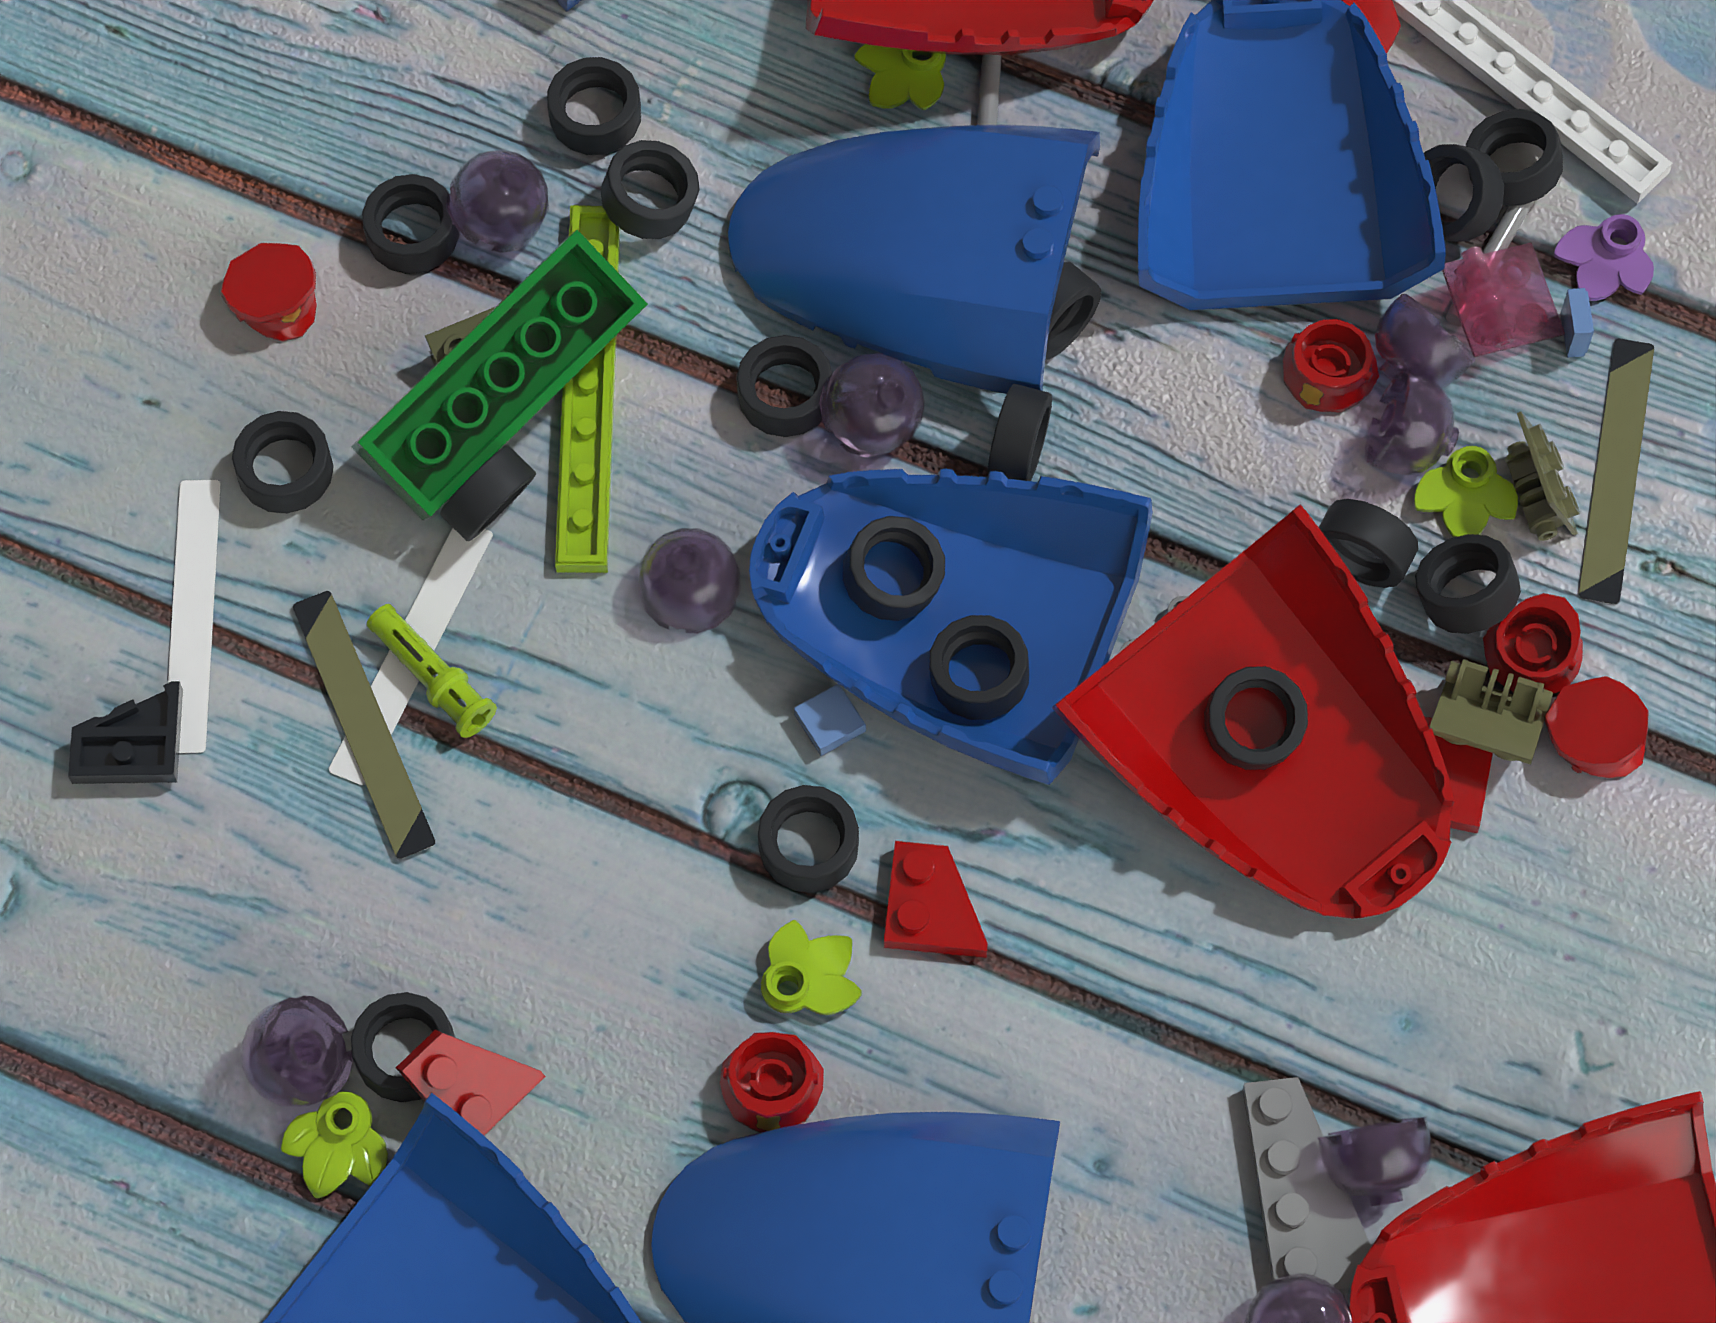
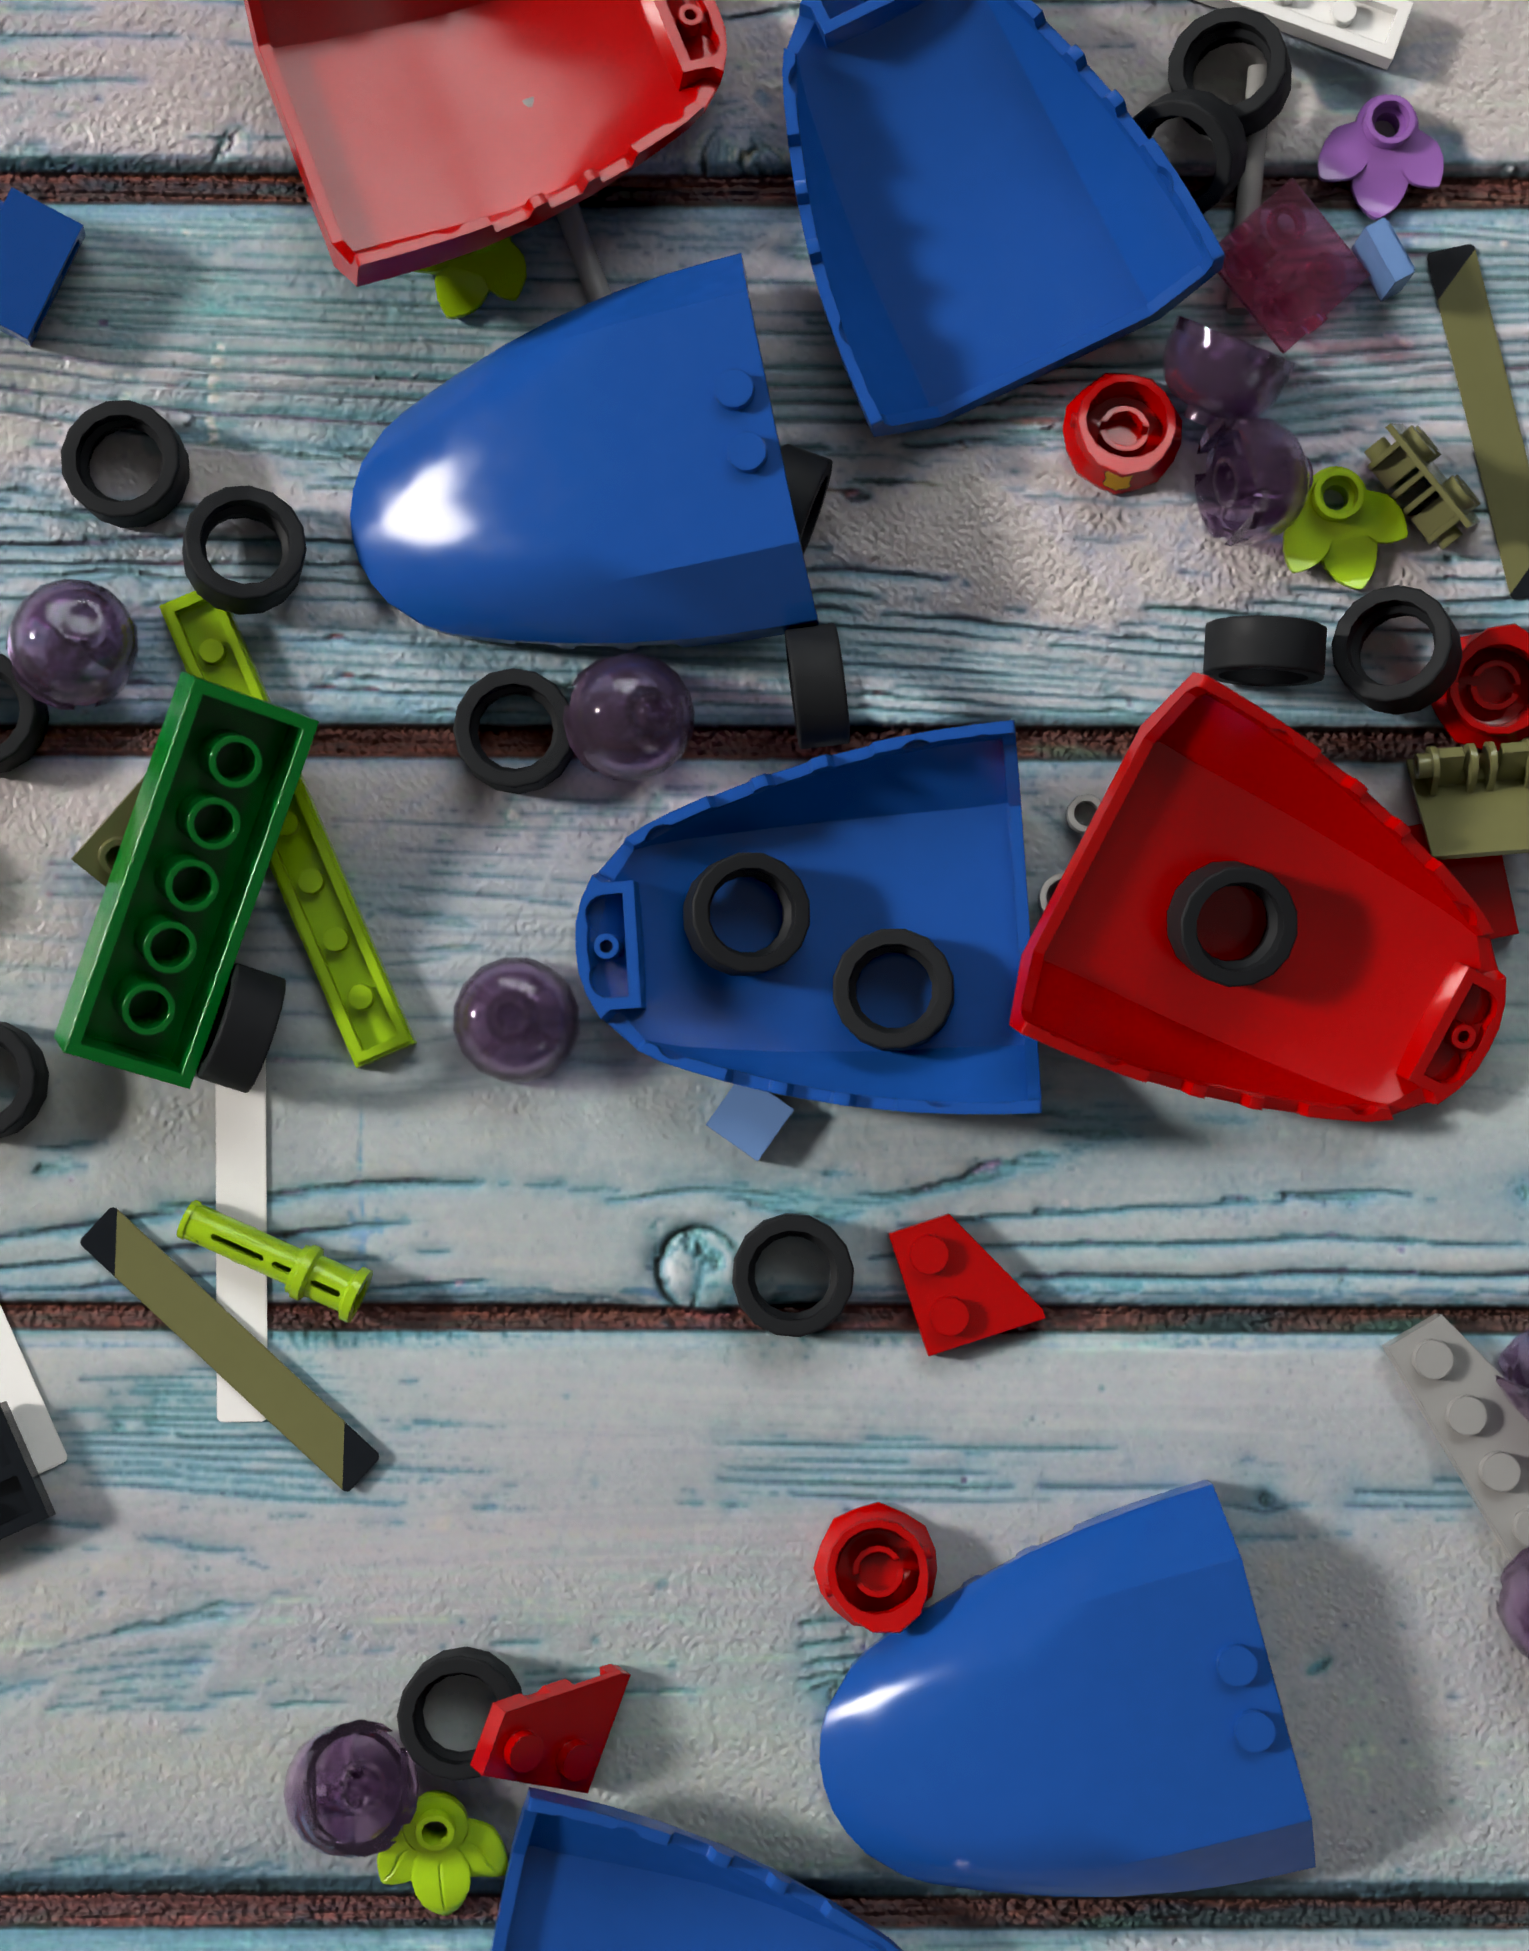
camera: 25 degrees left, 20 degrees up
(814, 967) = (868, 1418): lime plate -> none

